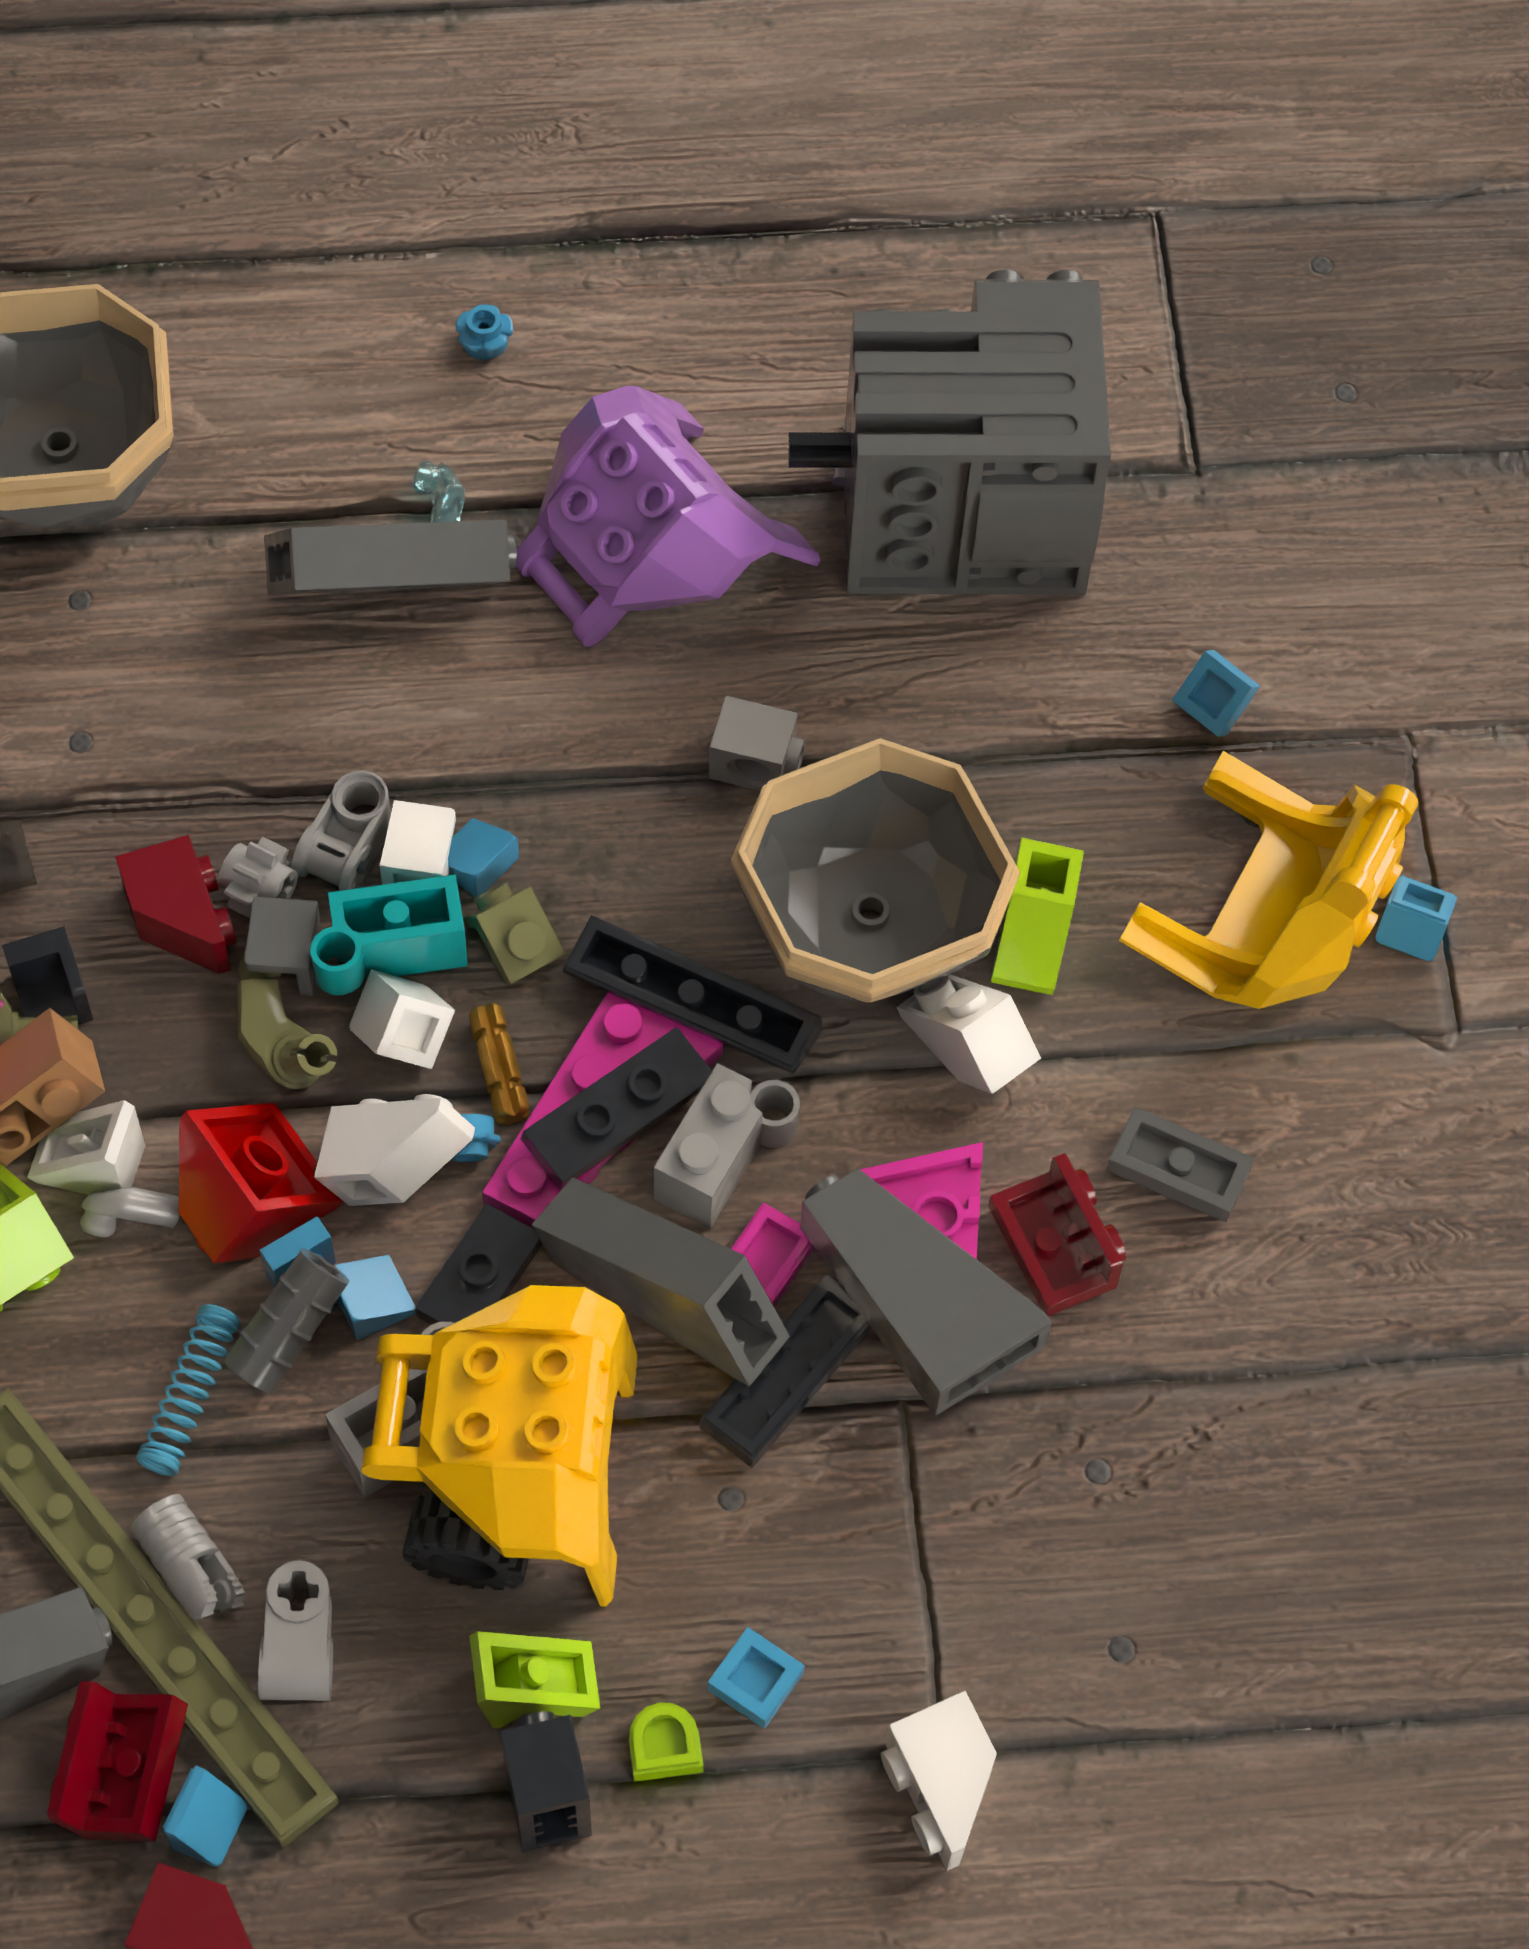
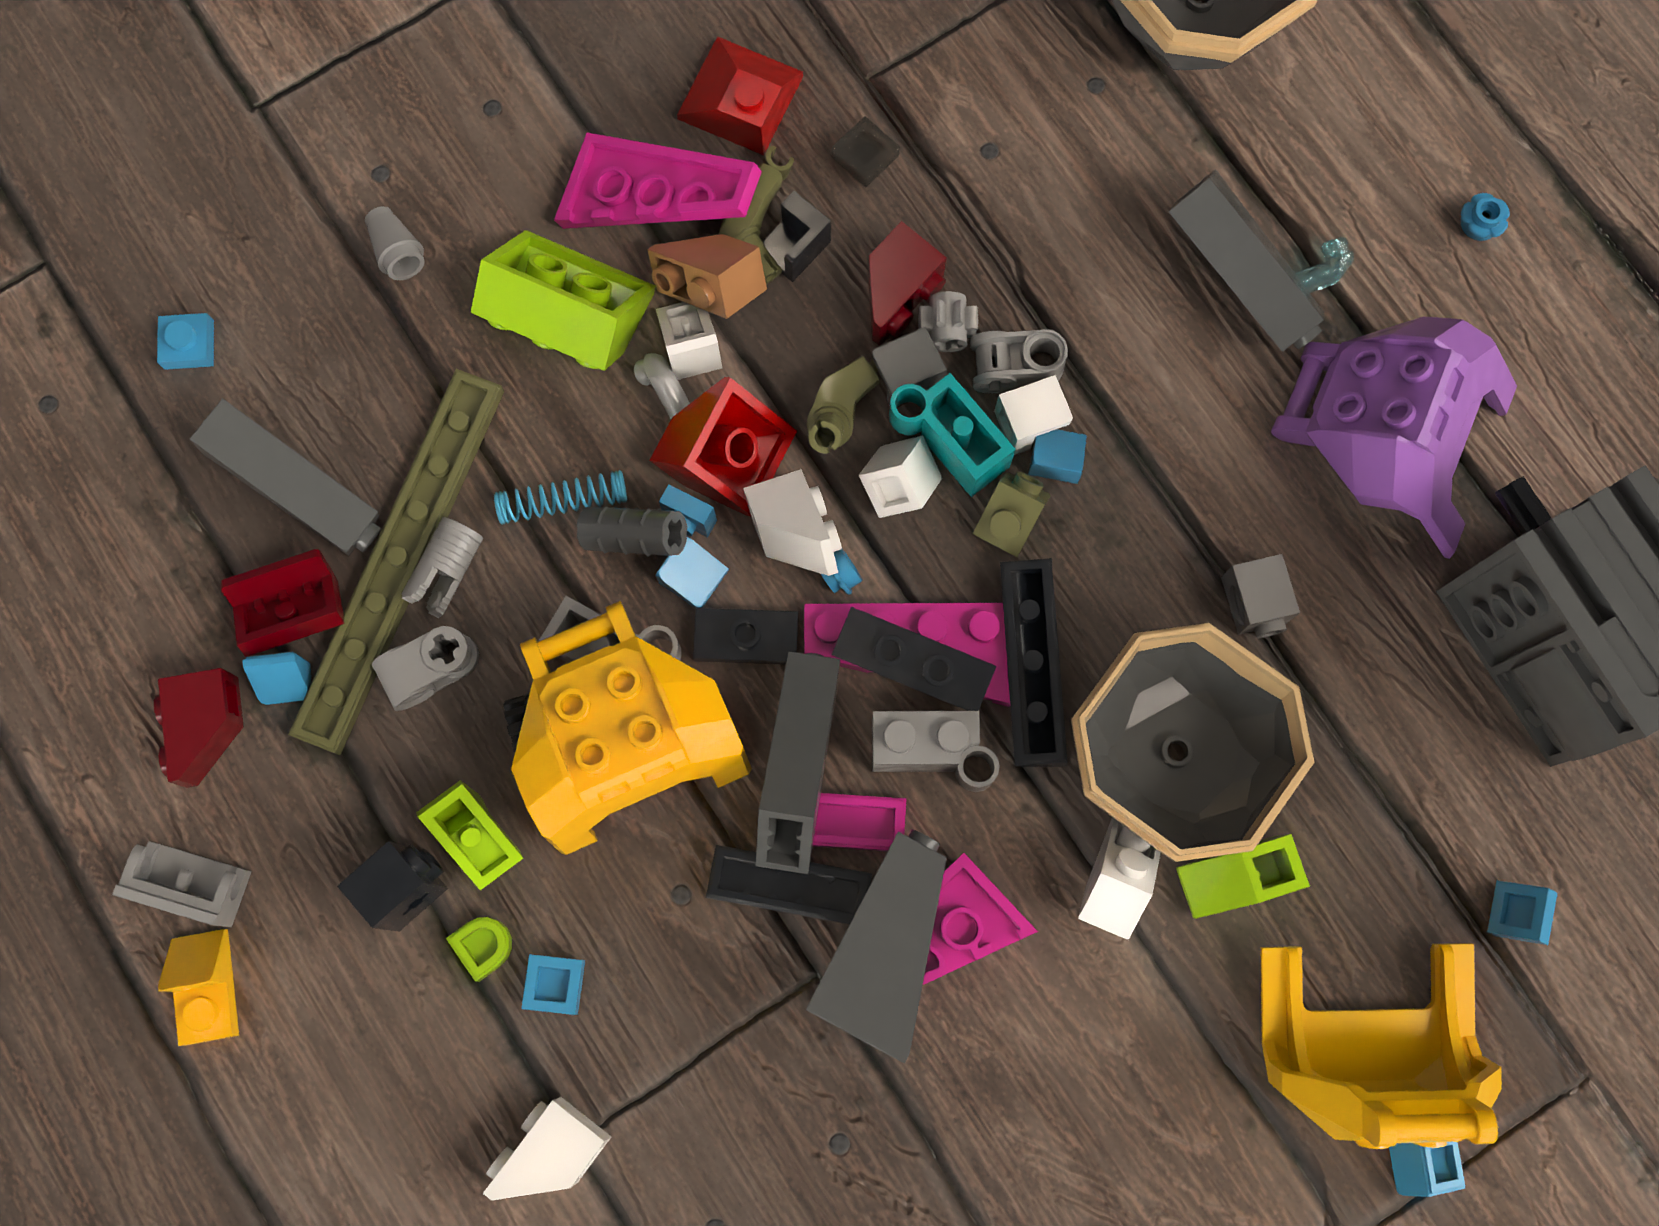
camera: 65 degrees right, 15 degrees up
(499, 1064) = (908, 560): pearl gold axle -> none
(1059, 1236) = (995, 1025): dark red bracket -> none
(1180, 1164) = (1107, 1086): dark grey plate -> none

